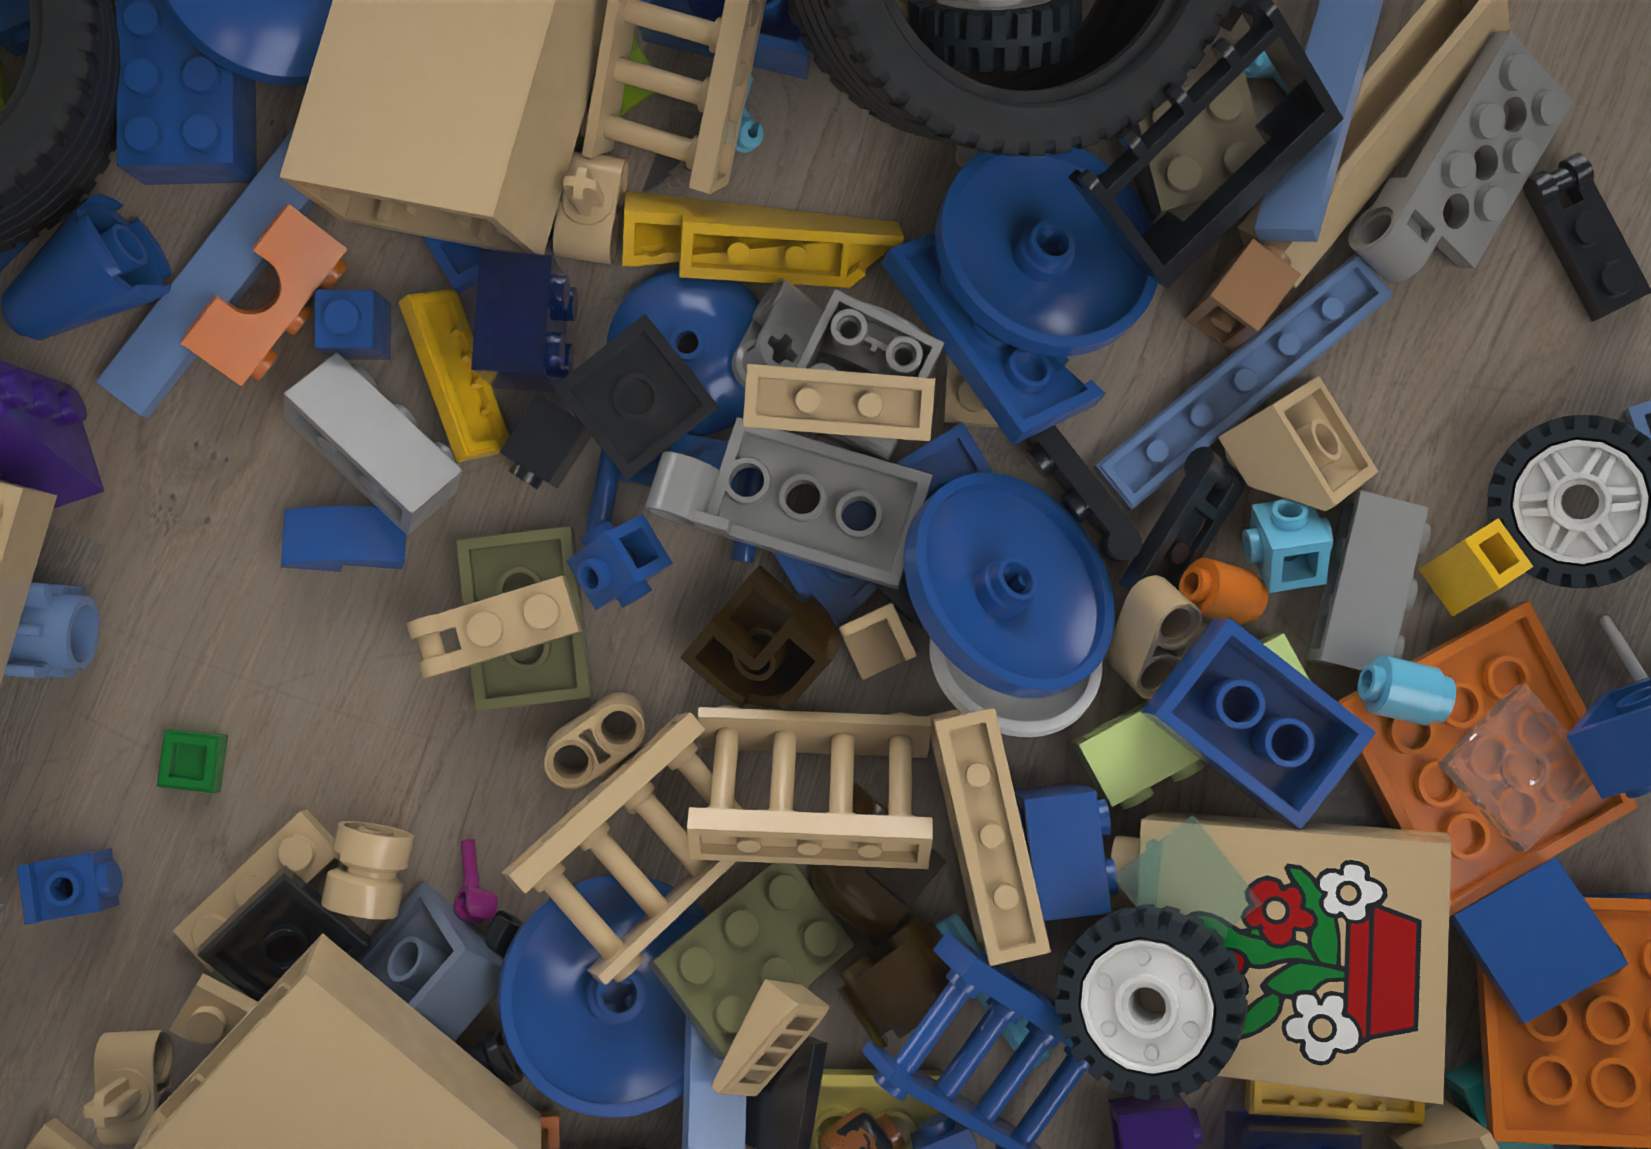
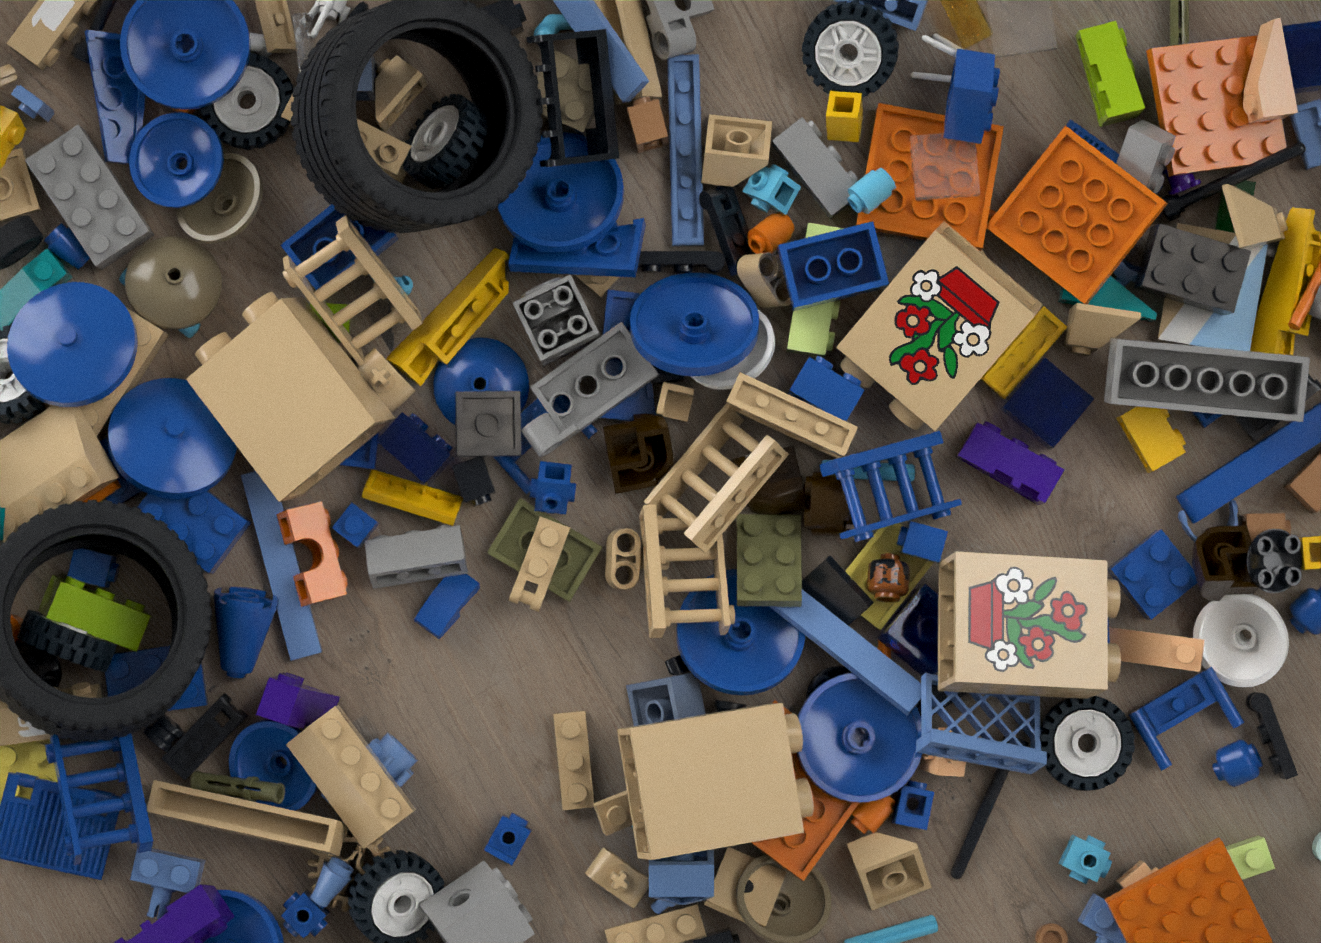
camera: 50 degrees left, 0 degrees up
(192, 760) = (493, 746): green tile -> none
(274, 932) = (598, 765): black plate -> none
(367, 870) = (602, 701): tan wheel -> none
(471, 902) = (651, 669): magenta hand -> none
(769, 1035) = (807, 577): tan slope -> none
(778, 330) = (507, 341): light grey piece -> none
(838, 402) = (563, 338): tan plate -> none
(1142, 1048) = (906, 425): wheel -> none
(1190, 875) = (878, 351): clear light blue piece -> none
(1538, 941) = (1019, 218): blue tile -> none

